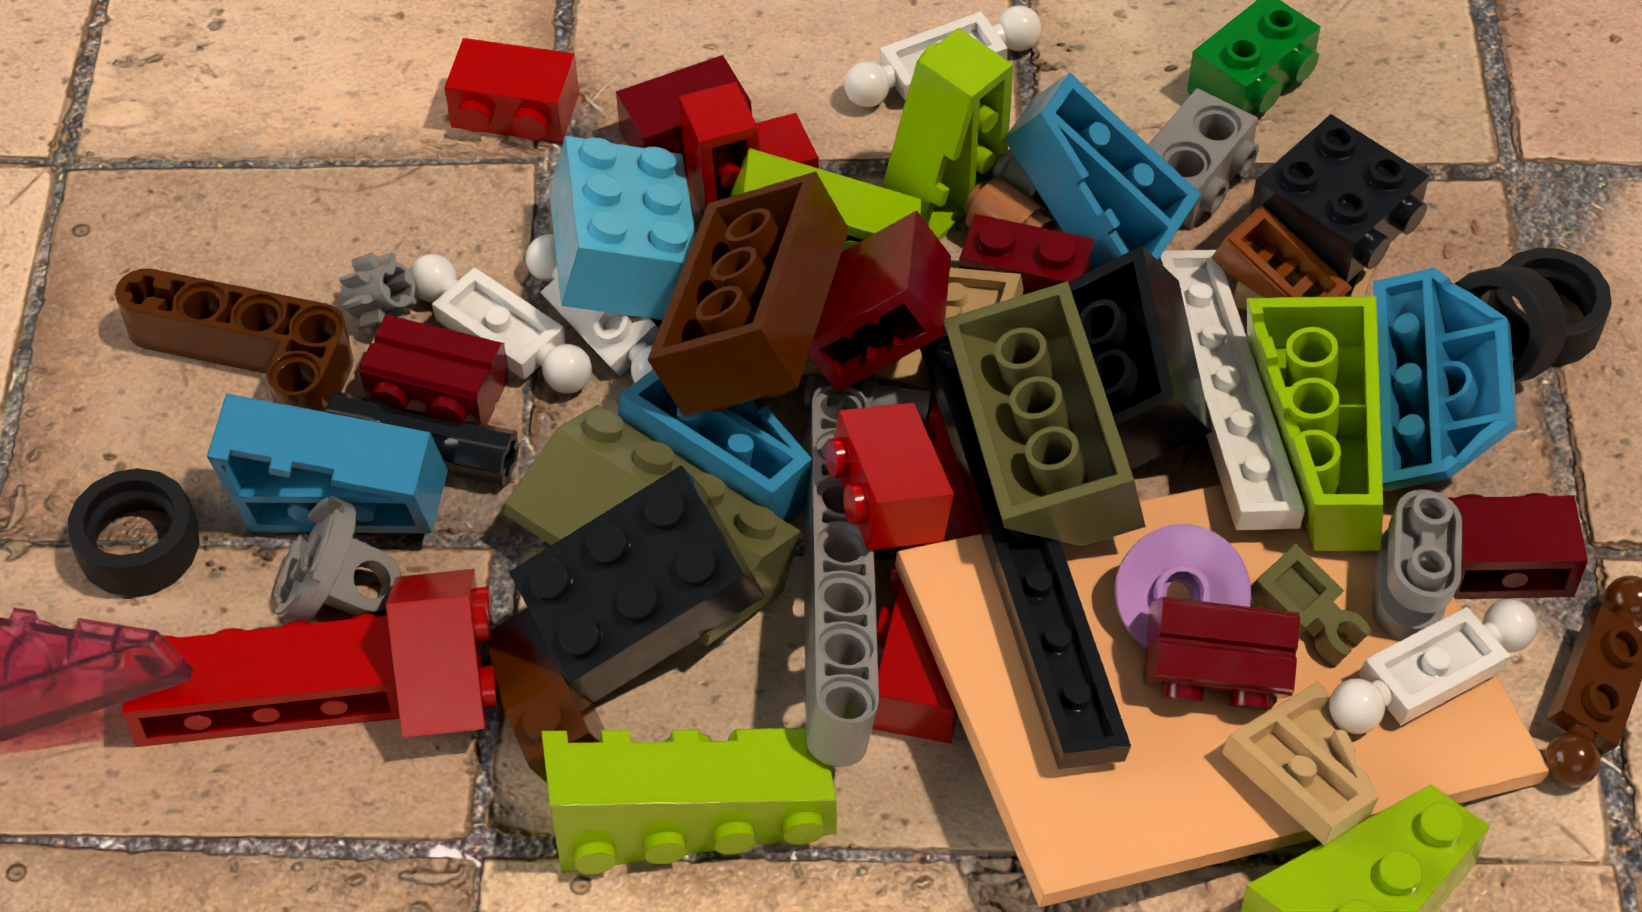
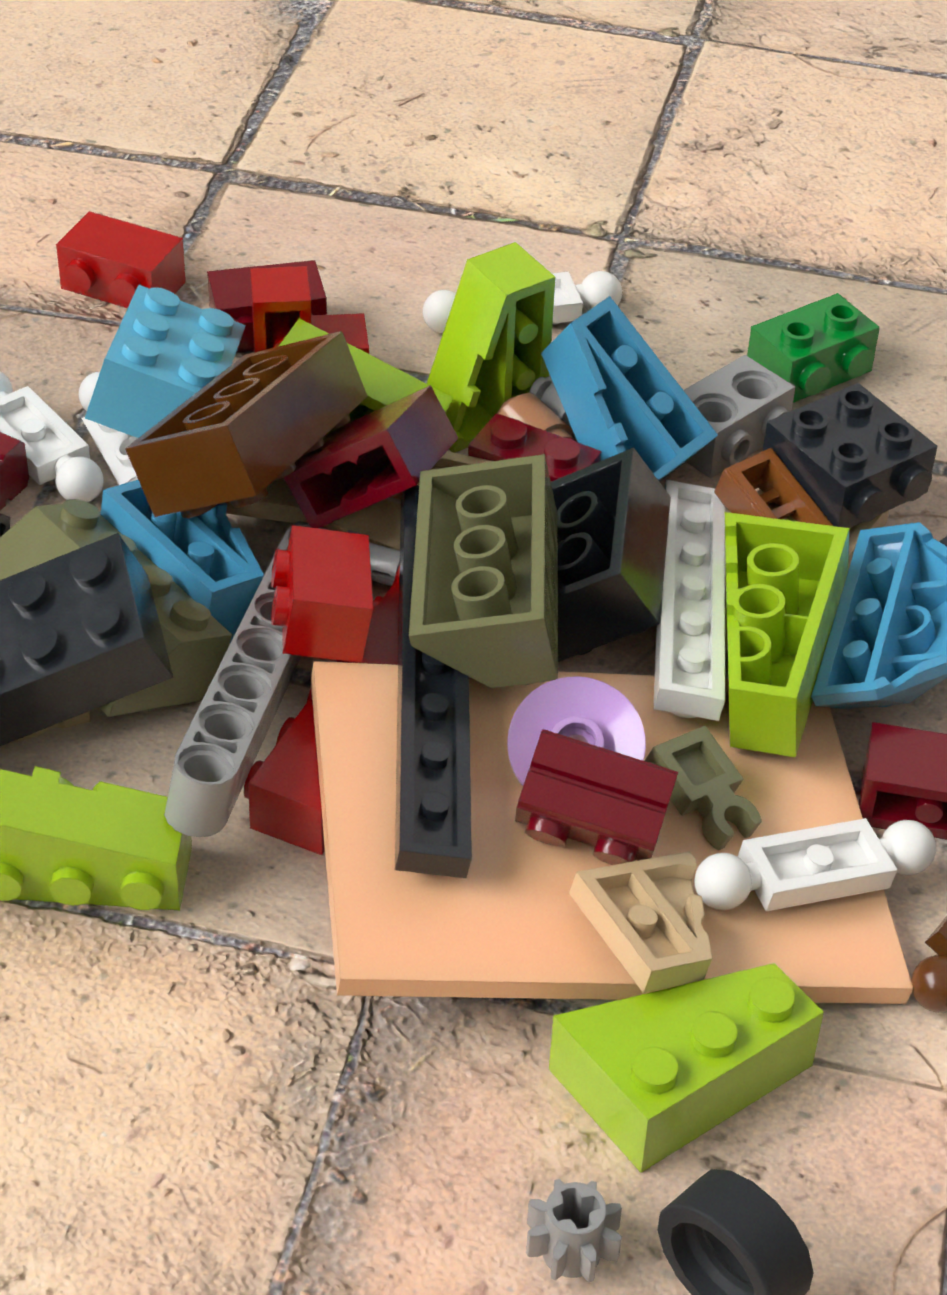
camera: 10 degrees right, 10 degrees down
(1417, 564) = (826, 766): light grey brick -> none

